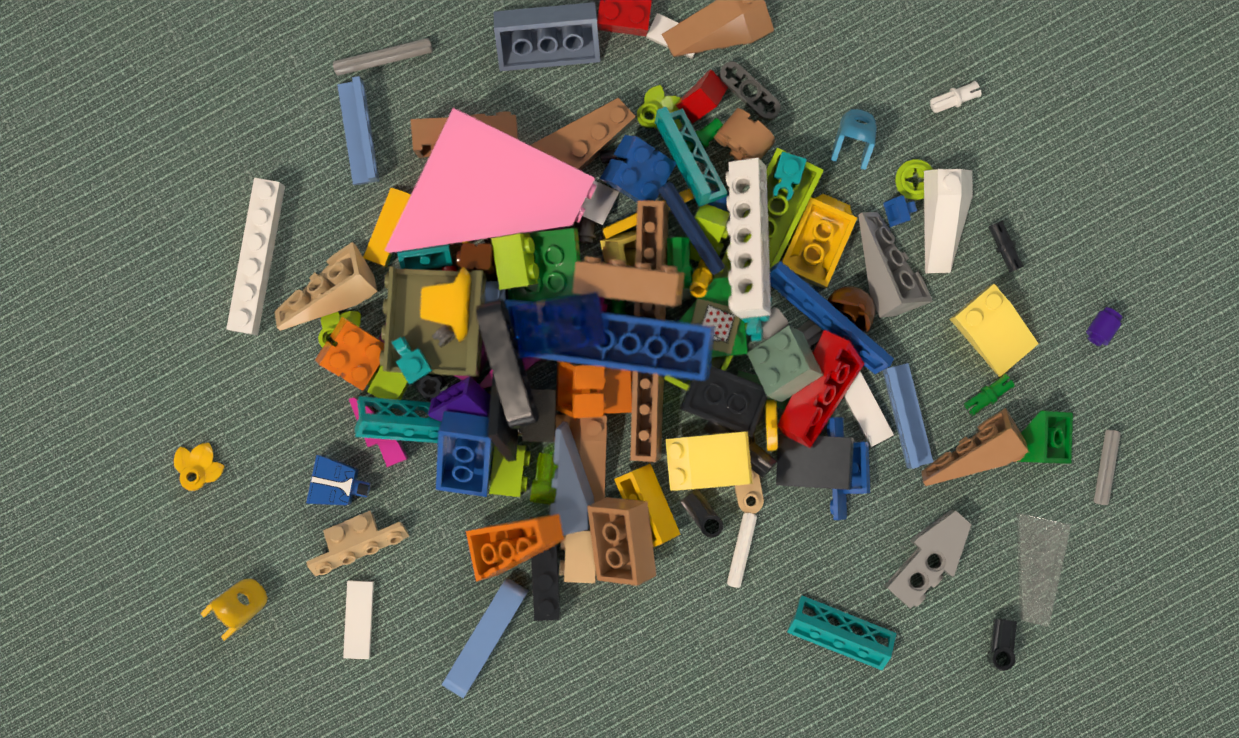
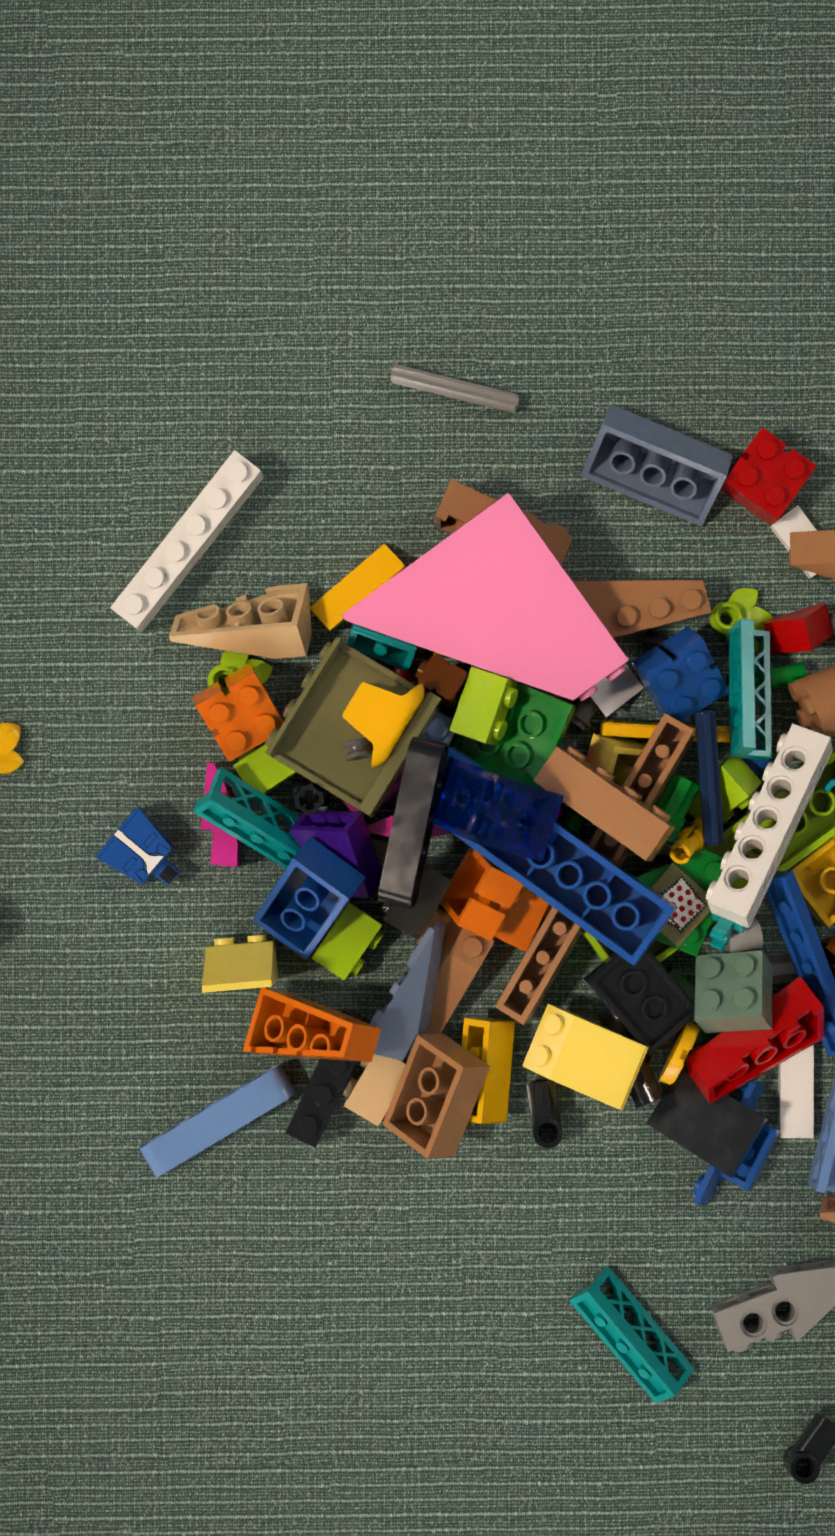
camera: 25 degrees right, 0 degrees up
(354, 540) = (127, 927): tan bracket -> none
(358, 132) = (380, 460): medium blue fence -> none
(358, 619) = (83, 1021): white tile -> none
(413, 363) = (303, 763): teal plate -> none
(443, 523) = (240, 964): none -> light yellow slope
(498, 428) = (363, 894): black tile -> none
(542, 489) = (378, 980): clear neon green piece -> none
(742, 550) = (567, 1177): white axle -> none
(747, 490) = (604, 1112): tan plate -> none

